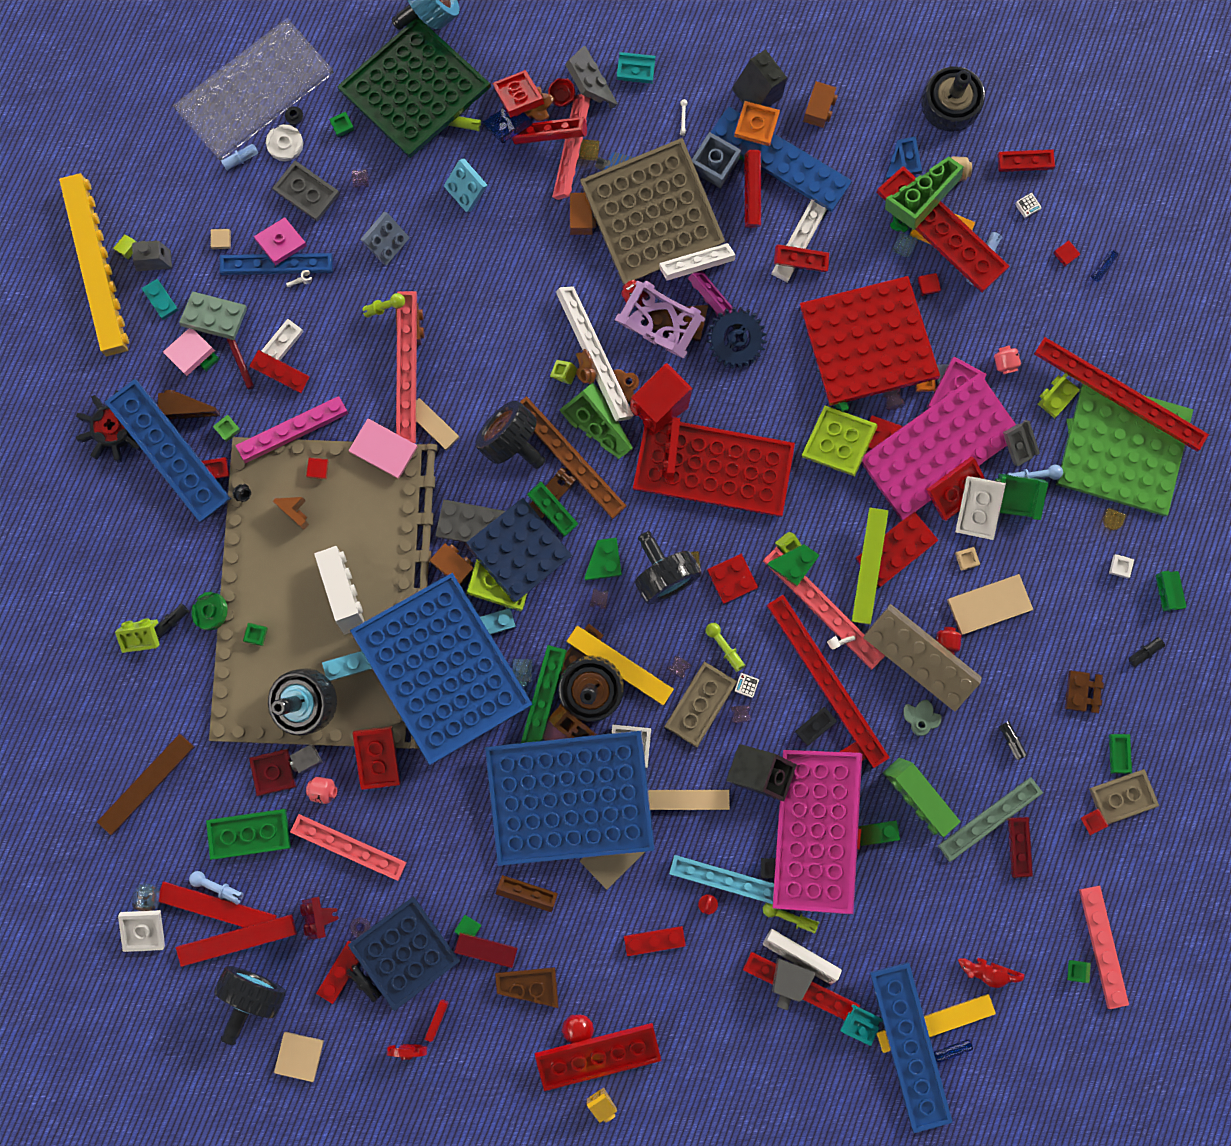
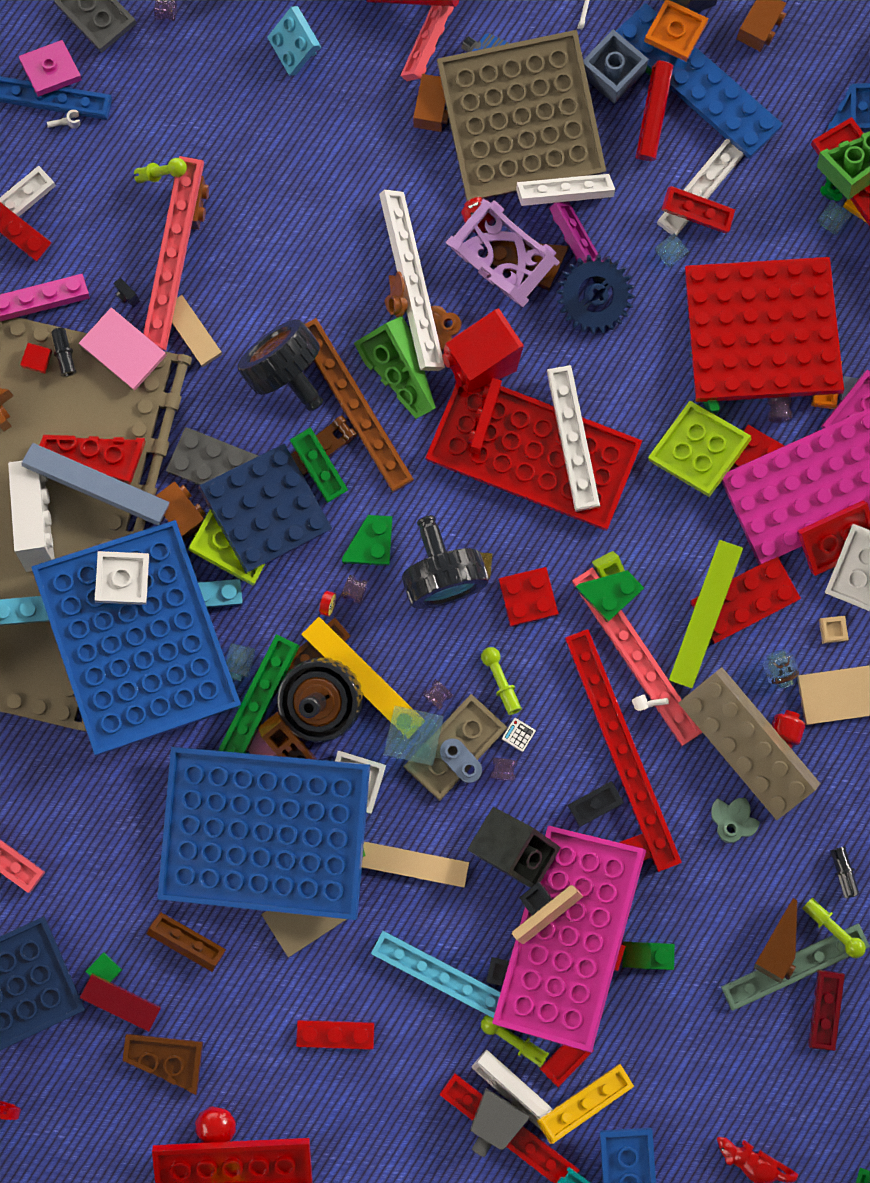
camera: 15 degrees right, 0 degrees up
(337, 459) = (63, 352): none -> black axle
(375, 404) = (125, 293): none -> black plate
(376, 758) = (33, 733): red plate -> none
(378, 535) = (112, 457): none -> red wing
(385, 238) = (179, 88): sand blue plate -> none
(385, 557) = (95, 484): none -> sand blue tile
(422, 625) = (122, 578): none -> white plate
(434, 1026) = (40, 1078): red tile -> none
(564, 371) = (369, 296): lime slope -> none
(581, 614) = (327, 603): none -> red tile
(589, 149) = (459, 25): clear yellow tile -> none
(668, 702) = (413, 735): none -> clear light blue plate
(706, 715) = (459, 761): none -> sand blue plate
(707, 904) = (412, 1001): red tile -> none
(742, 451) = (573, 438): none -> white tile
(787, 293) = (671, 250): none -> clear light blue plate
(788, 808) = (535, 898): none -> black plate
(797, 817) = (547, 914): none -> tan tile
(831, 927) = (563, 1063): none -> red tile
(854, 954) = (585, 1104): none -> yellow tile
(921, 796) = (712, 920): bright green wedge -> none
(929, 284) = (855, 272): red tile -> none
(934, 596) = (781, 668): none -> clear light blue head
(977, 807) = (781, 947): none -> reddish brown slope
(1031, 795) = (853, 946): none -> lime pin

